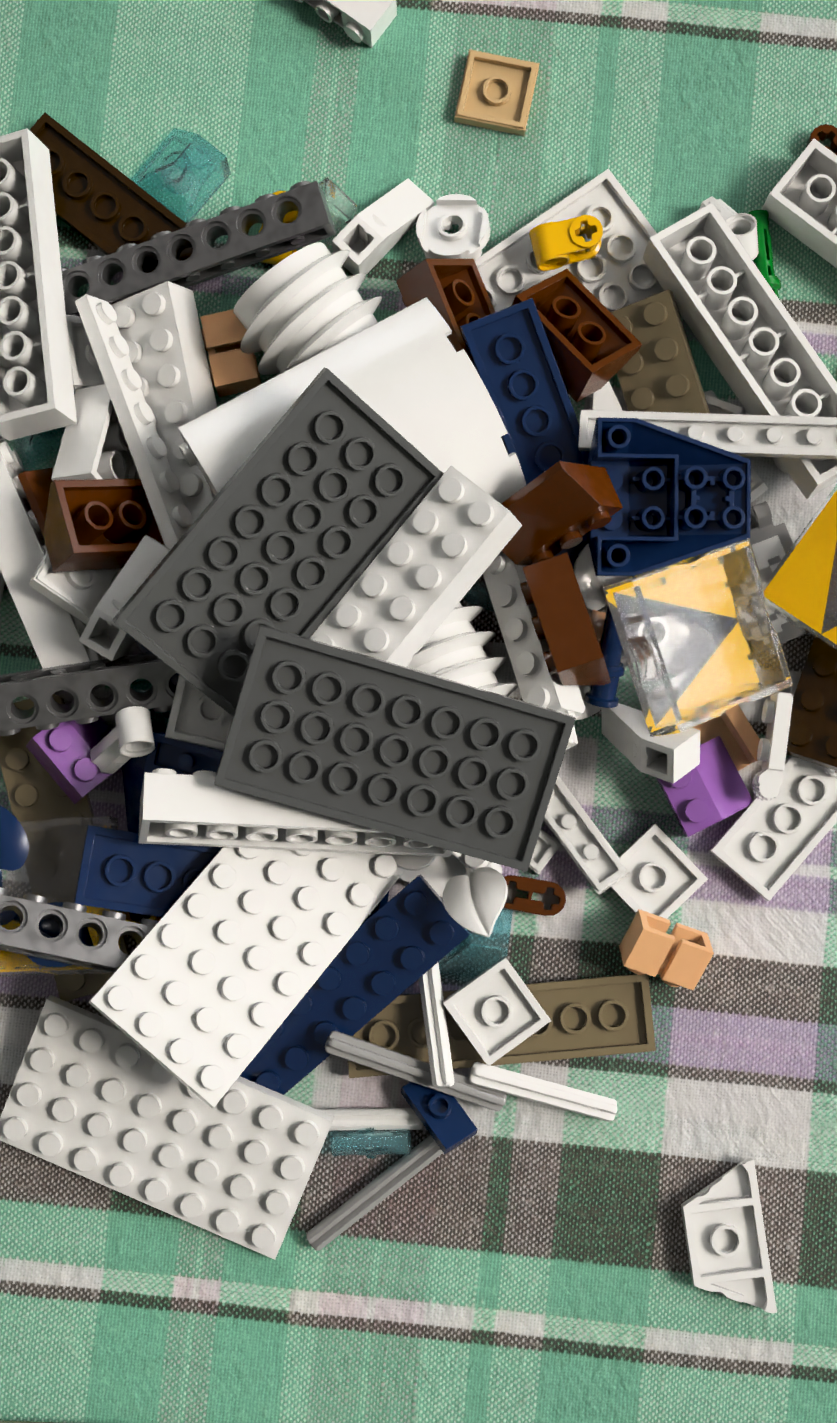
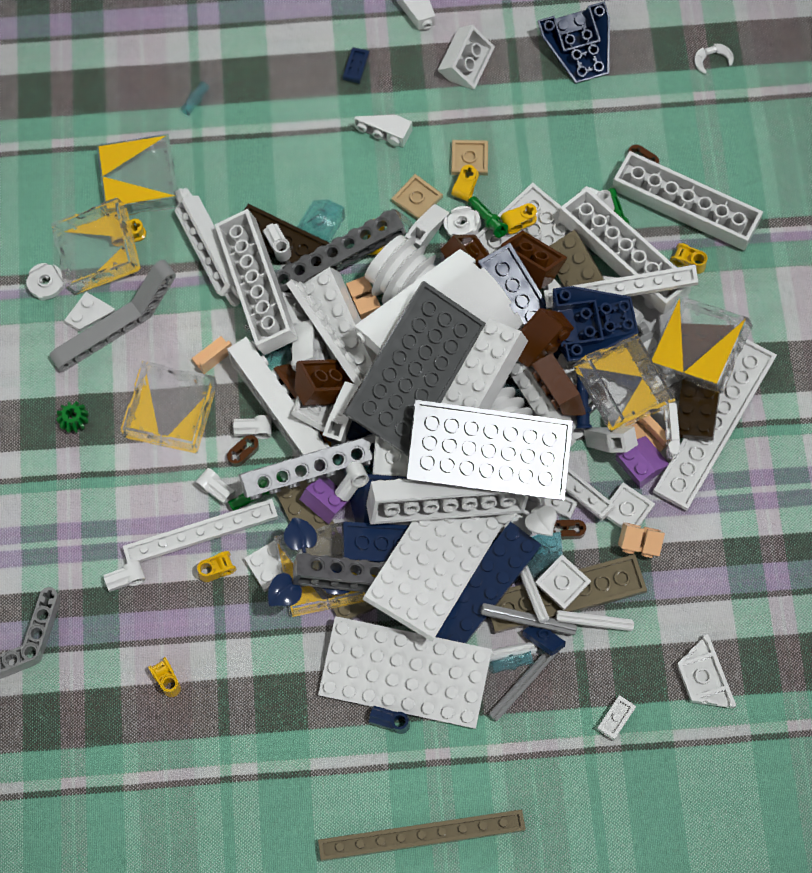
camera: 10 degrees left, 15 degrees down
(83, 205) = (277, 241): none -> white piece
(112, 1211) = (388, 718): none -> dark blue piece
(377, 157) = (416, 197): none -> tan tile
(474, 151) = (465, 185): none -> yellow piece
(510, 236) = (491, 221): none -> green pin
(544, 1290) = (616, 717): none -> white plate

